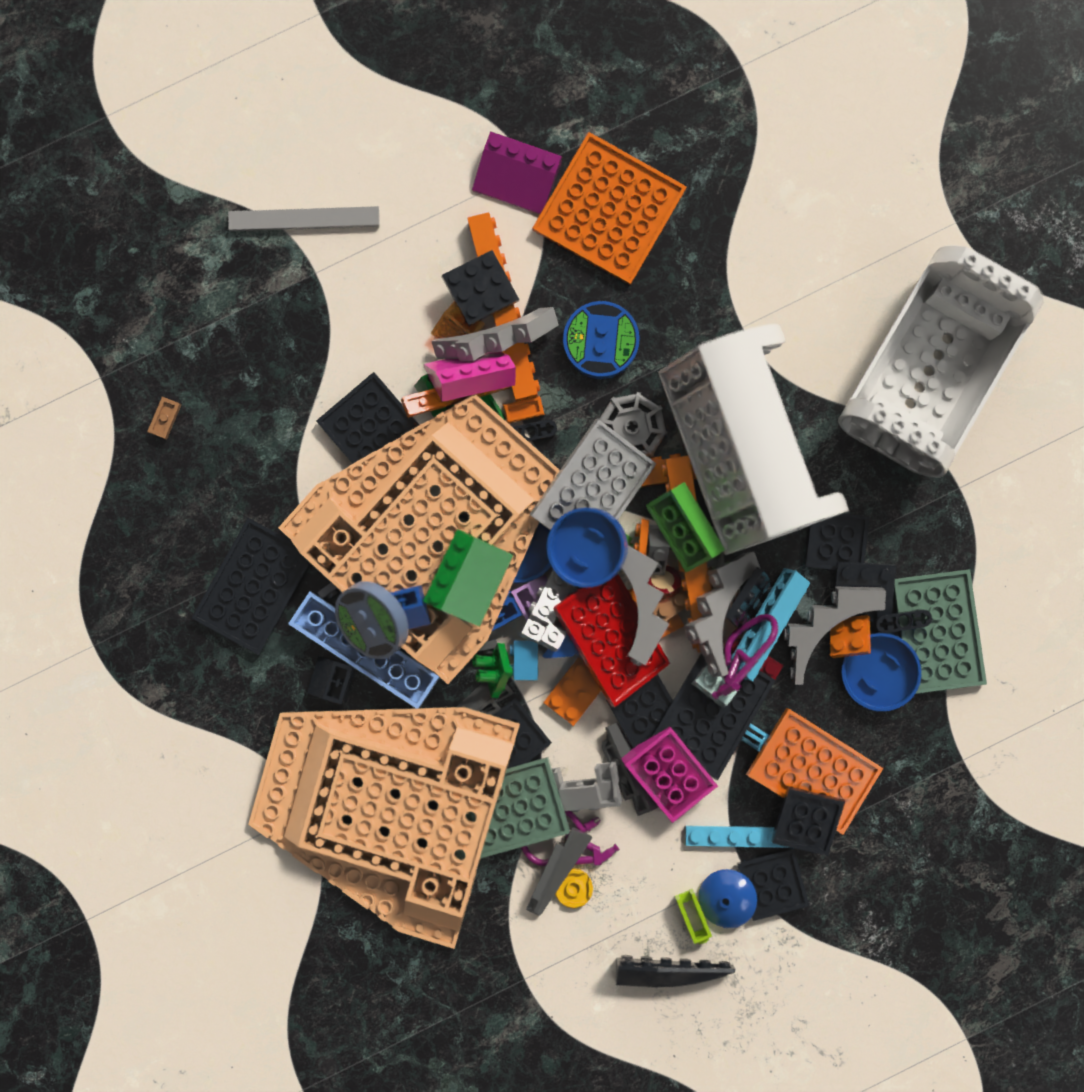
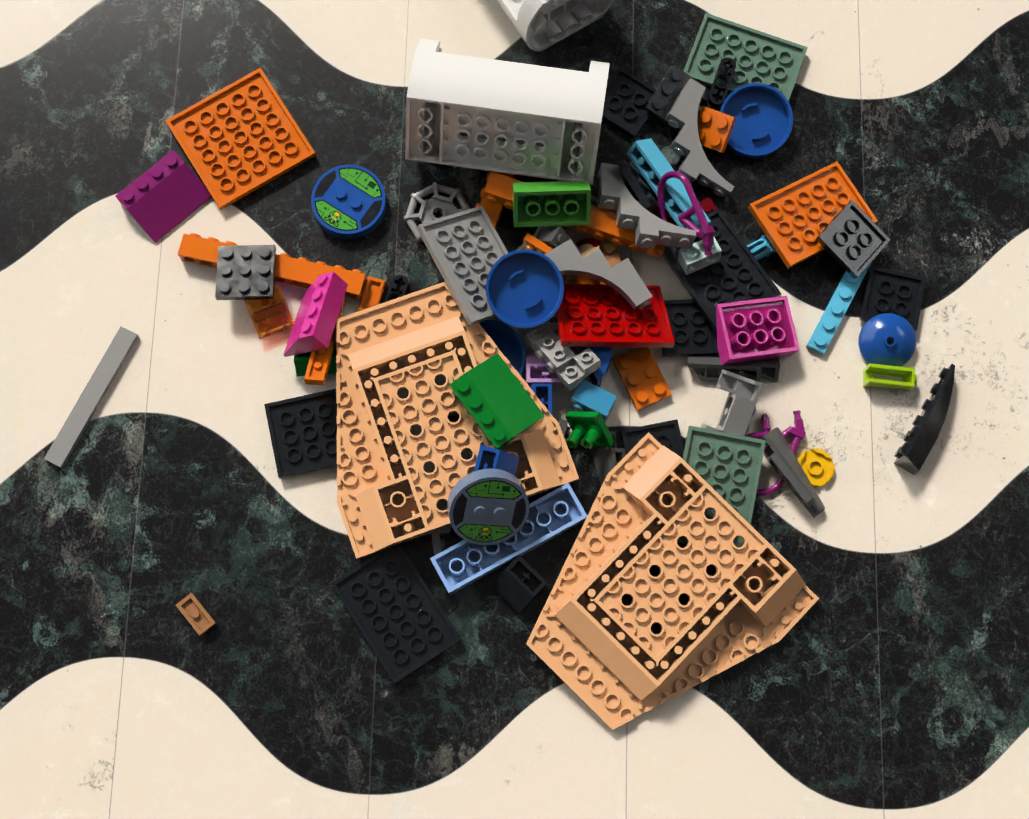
camera: 70 degrees left, 10 degrees down
(496, 339) = (299, 276): light grey arch -> none

